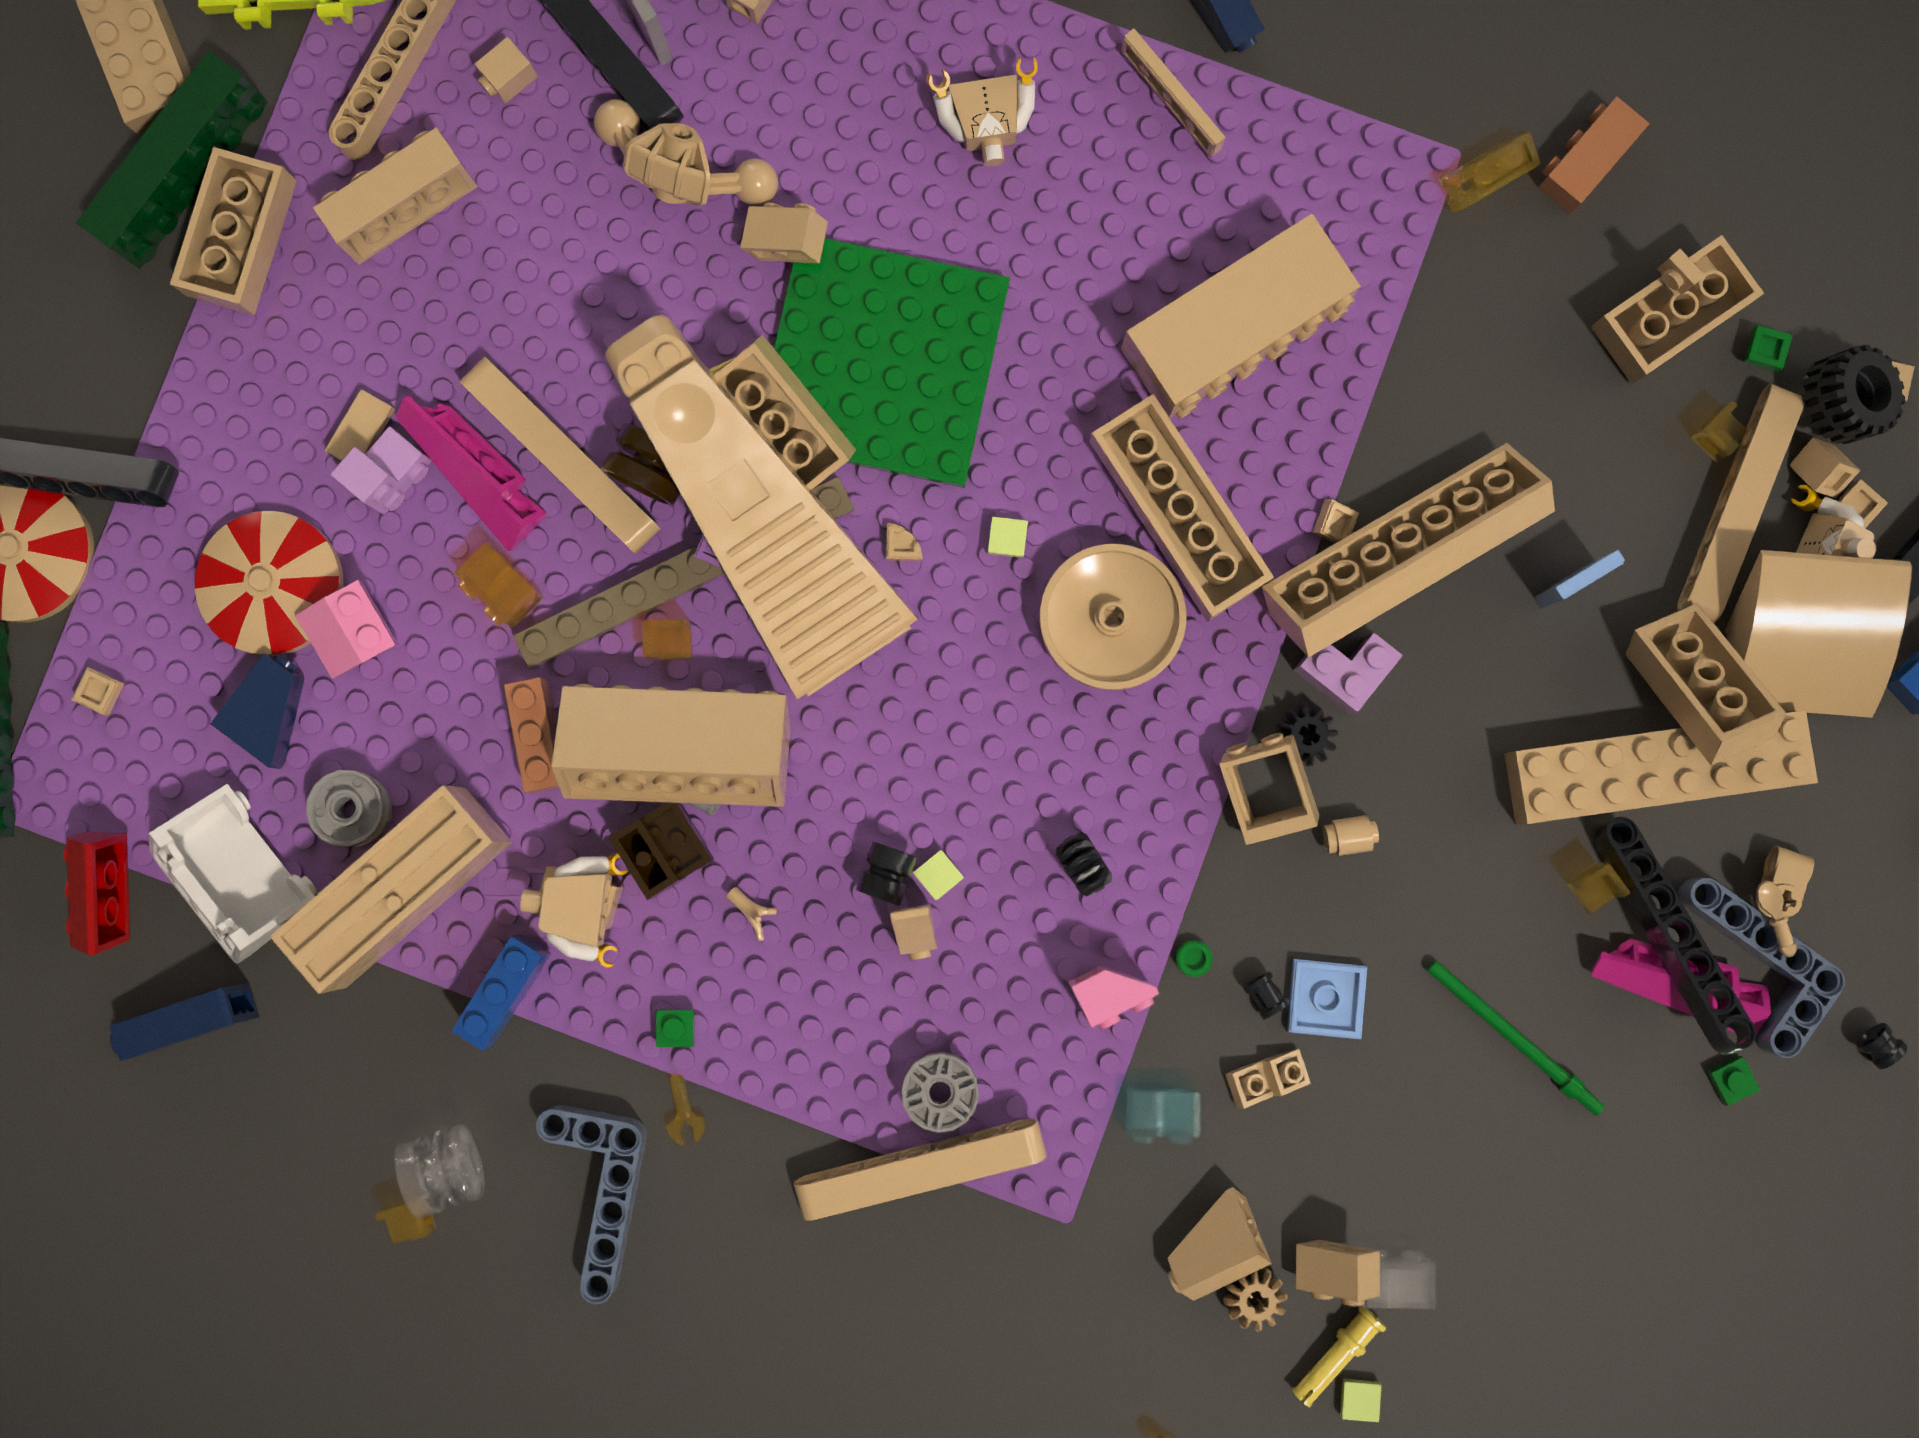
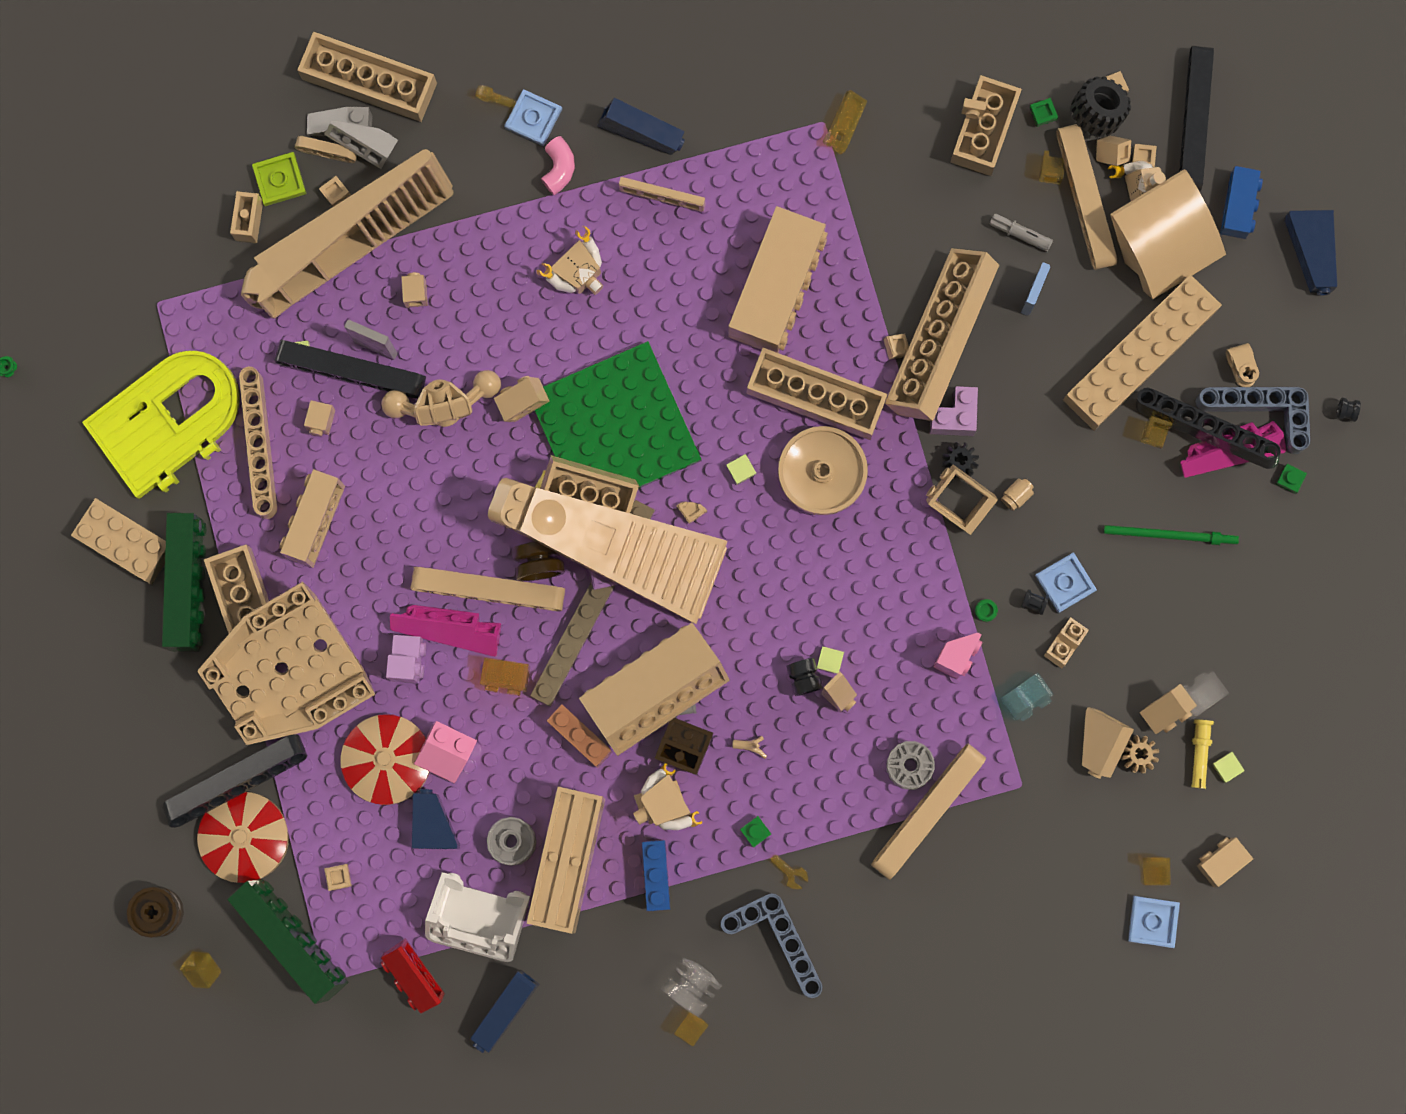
camera: 35 degrees left, 5 degrees down
(226, 424) = (313, 688): none -> tan wedge
(360, 425) = (375, 649): tan tile -> none
(667, 639) = (609, 641): clear yellow panel -> none
(1083, 864) = (898, 601): black gear -> none
(1592, 154) = (888, 78): nougat brick -> none
(1616, 489) = (1021, 232): none -> light grey axle
(1705, 684) = (1132, 296): tan brick -> none
(1772, 901) = (1242, 378): tan piece -> none

